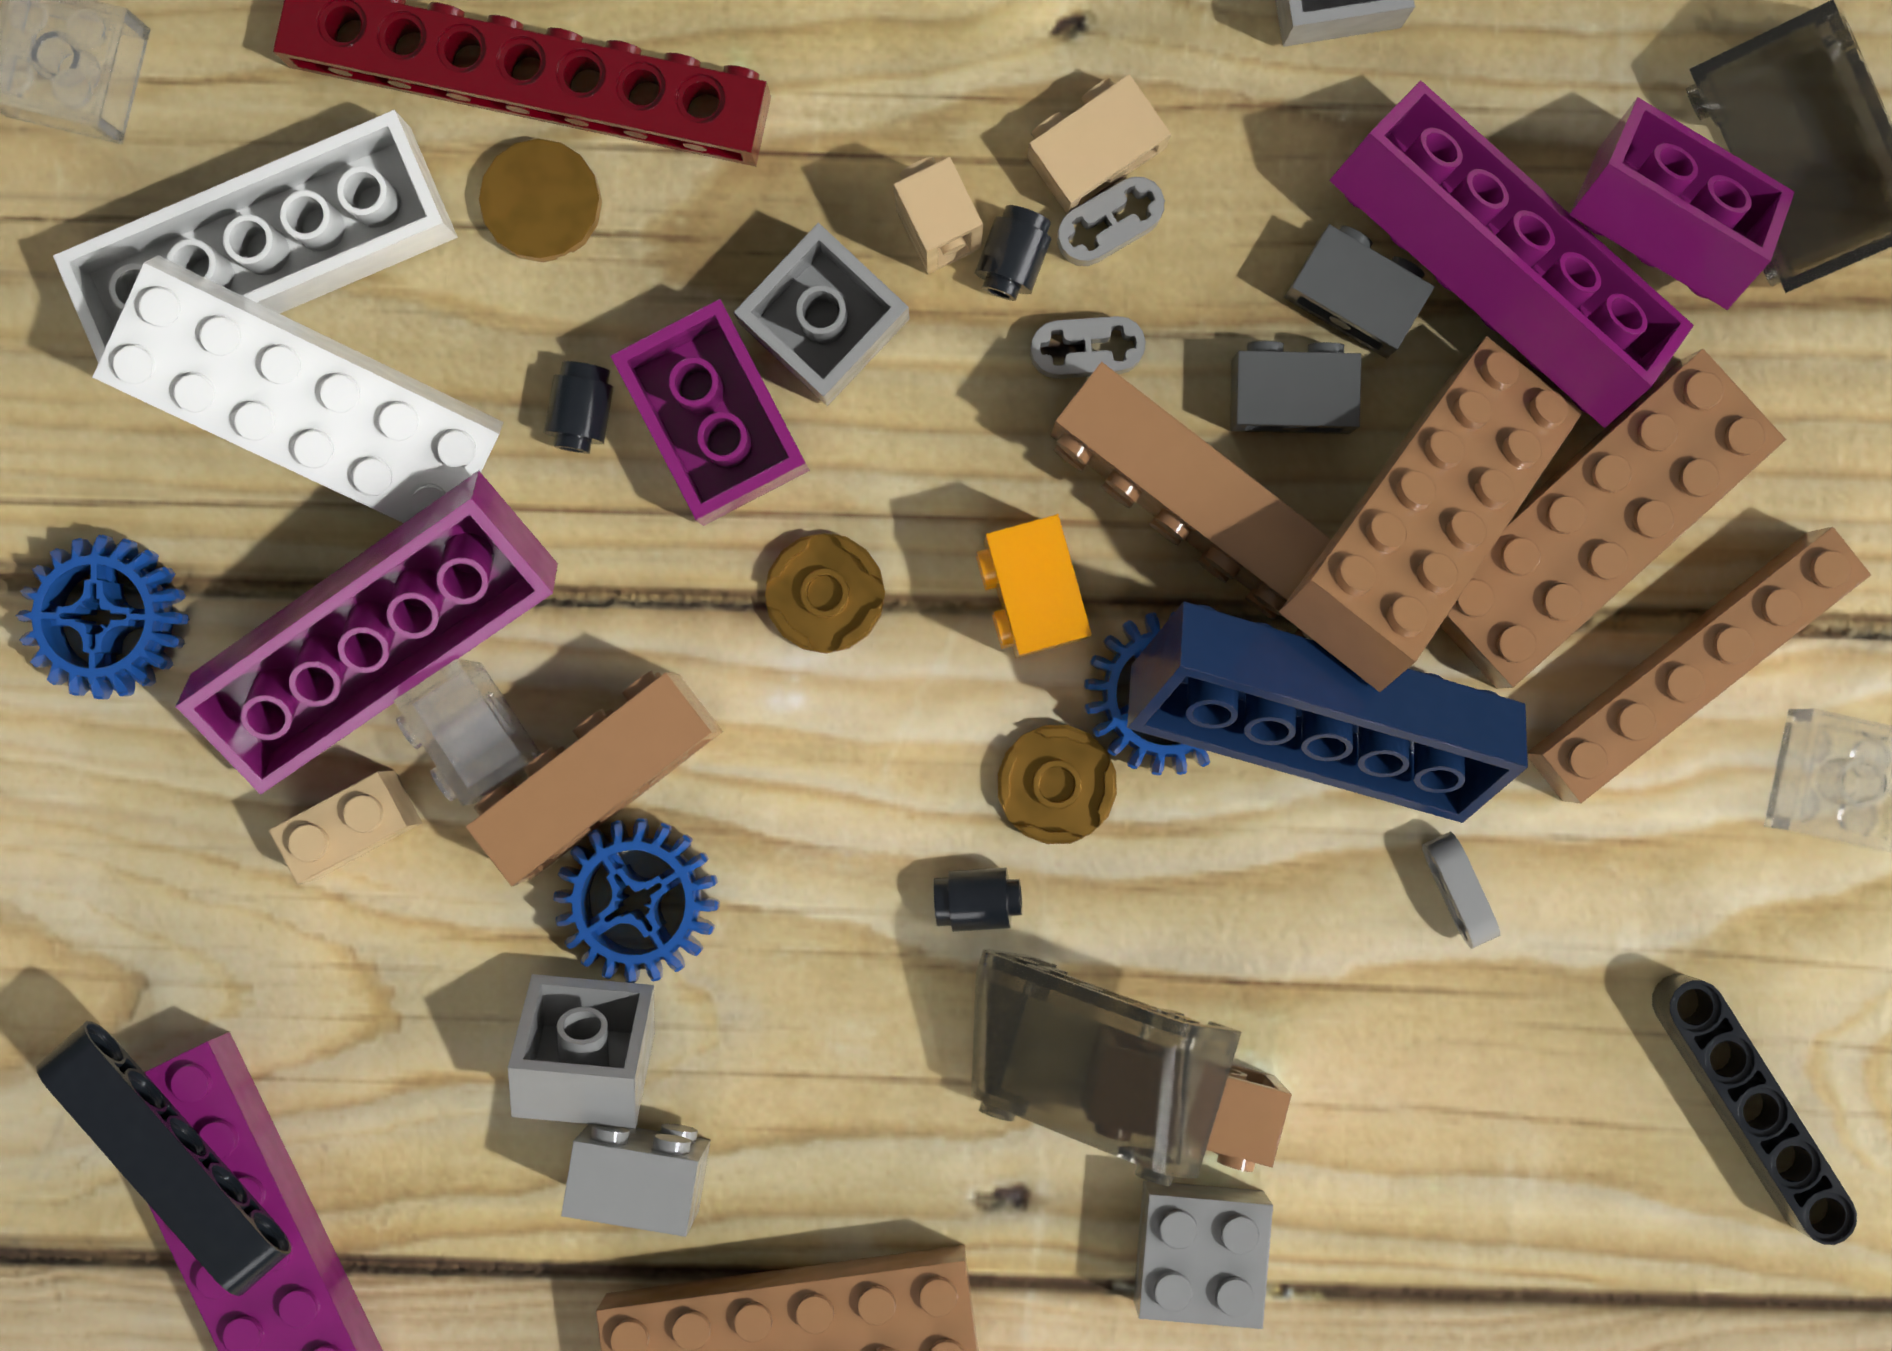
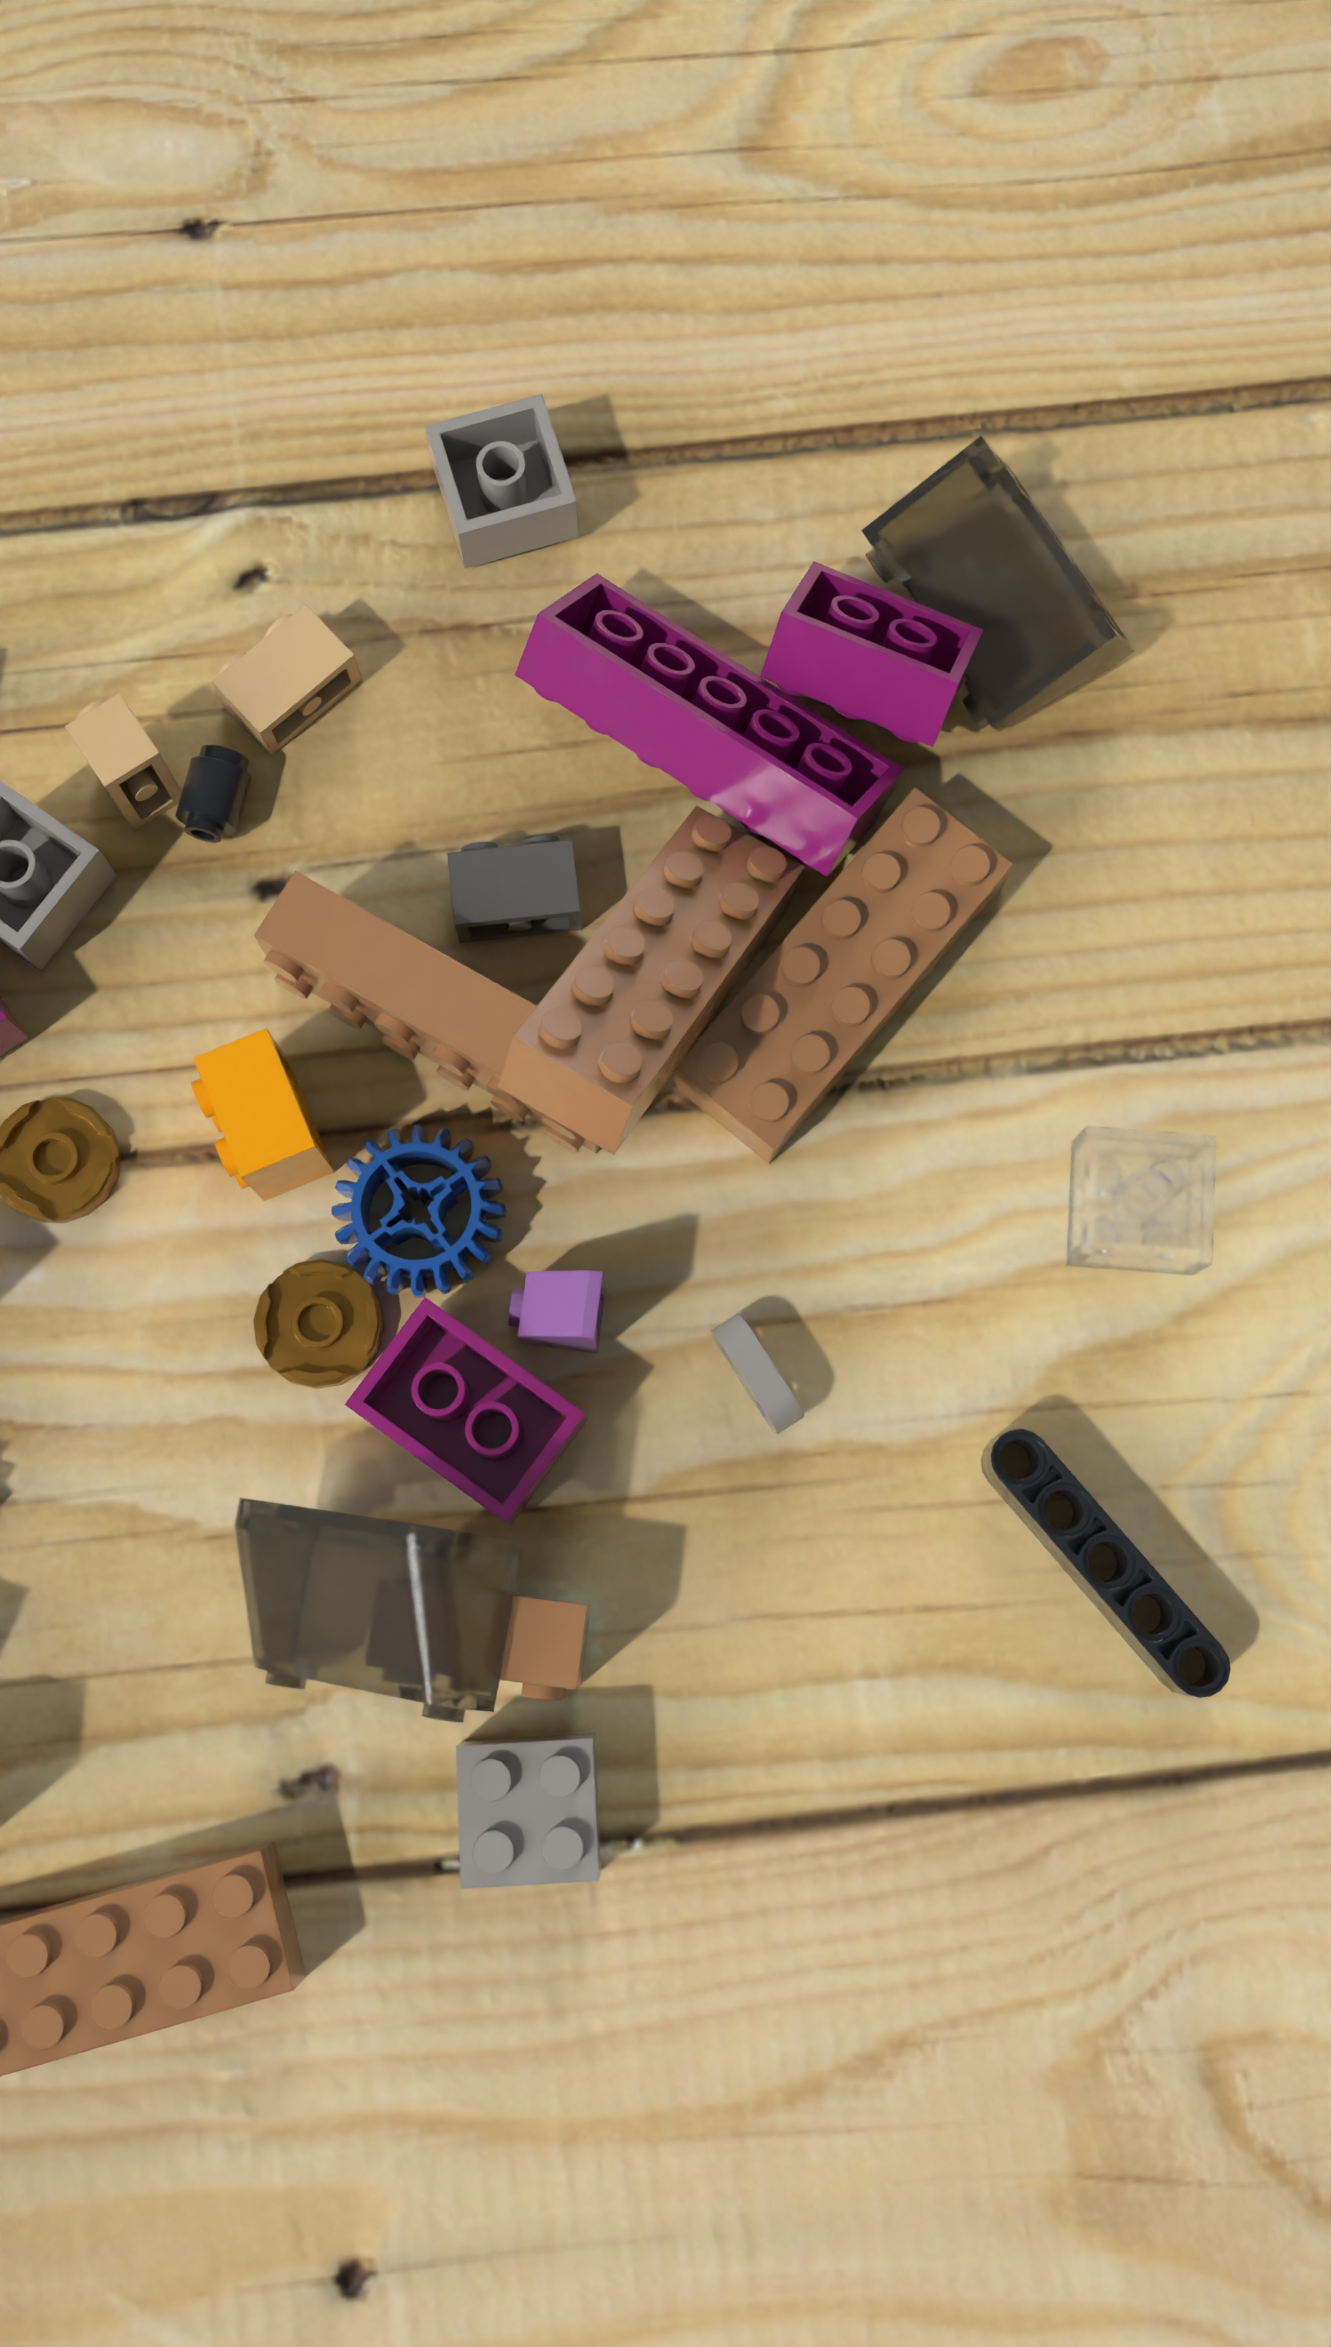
camera: 10 degrees left, 10 degrees down
(977, 899) = (243, 1455): black brick -> none
(1087, 332) = (308, 861): light grey beam -> none
(1103, 208) = (309, 750): light grey beam -> none
(1193, 892) = (467, 1411): none -> magenta brick
(1290, 809) = (559, 1309): none -> medium lavender slope
(1307, 714) = (549, 1198): dark blue brick -> none
(1360, 290) = (567, 784): dark grey brick -> none
(1698, 664) = (964, 1106): medium nougat brick -> none

